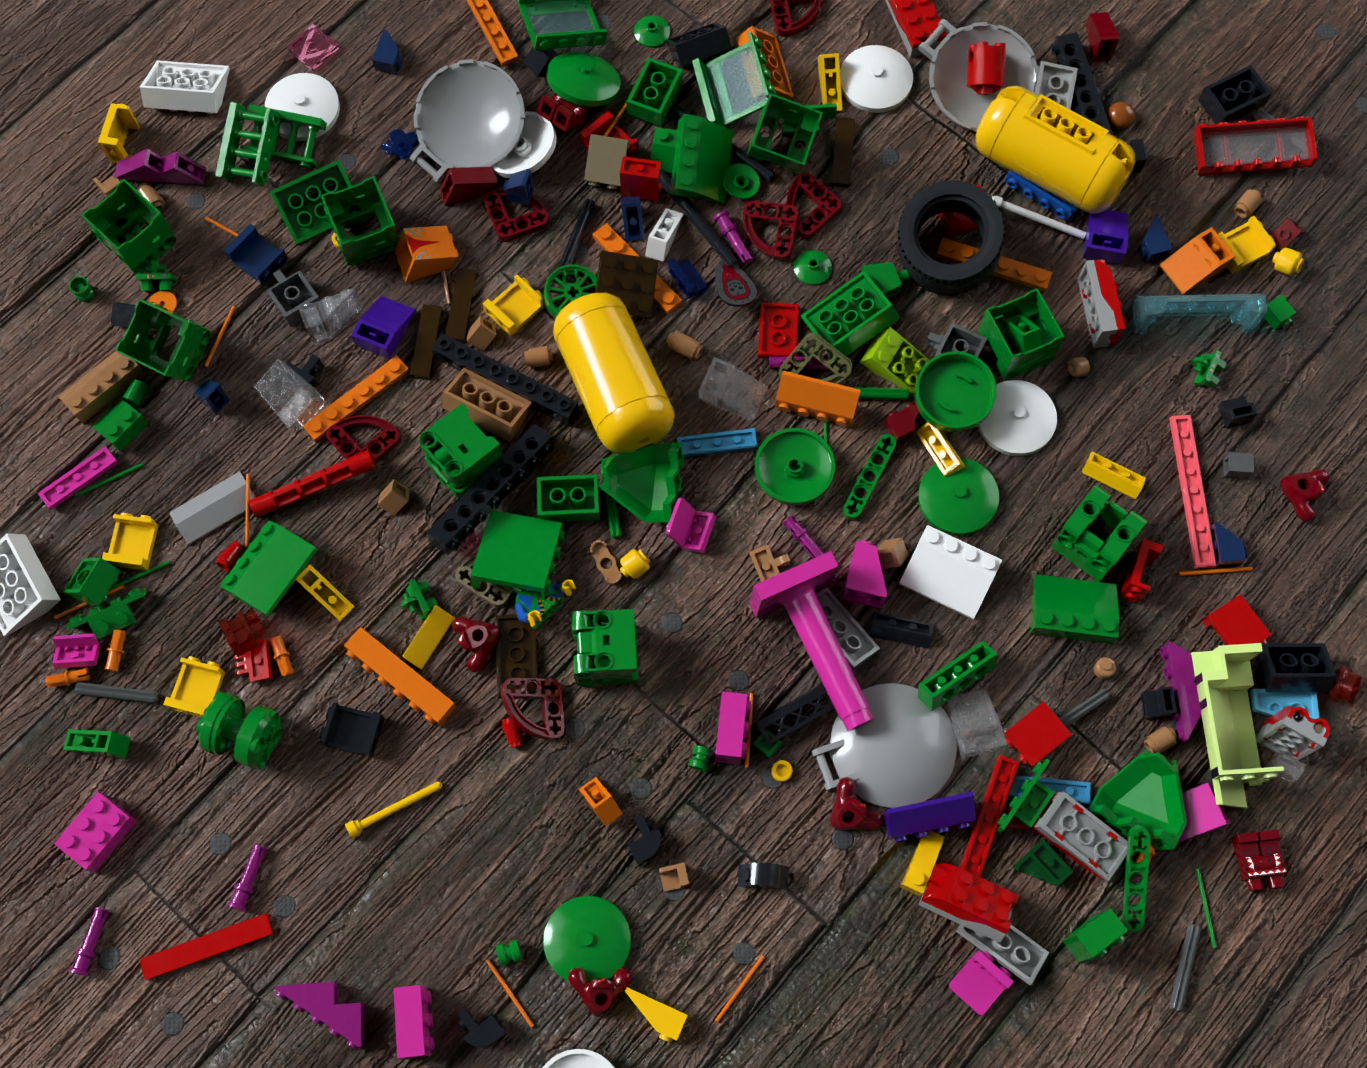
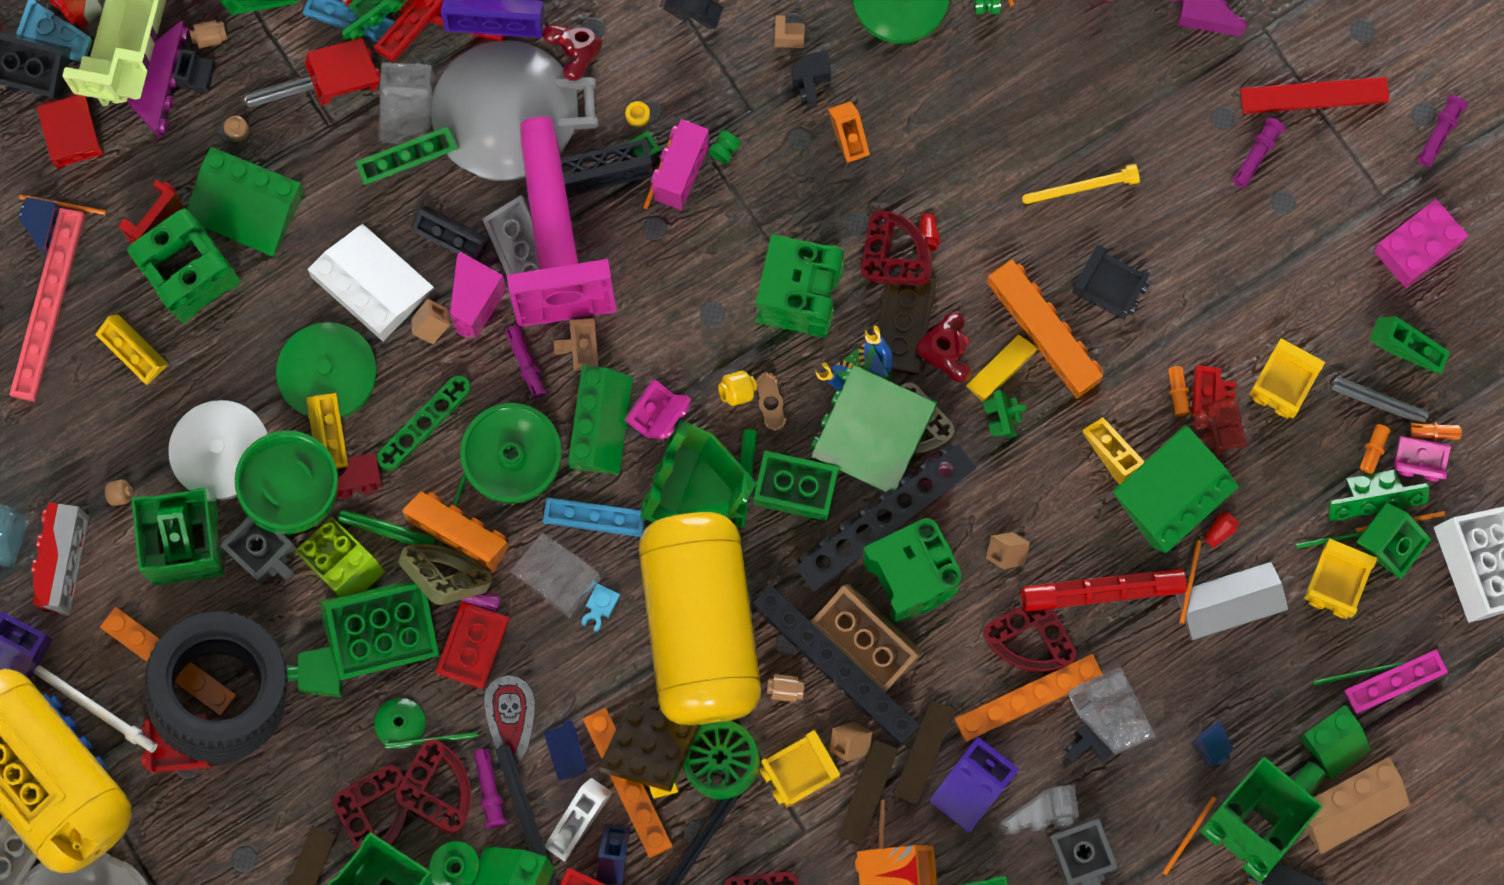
camera: 165 degrees left, 5 degrees up
(225, 724) = (1253, 312): green wheel -> none
(684, 345) = (597, 654): medium nougat head -> none
(692, 381) = (602, 604): none -> medium azure plate
(734, 511) = (600, 421): none -> green slope
(786, 260) = (421, 741): none -> green axle

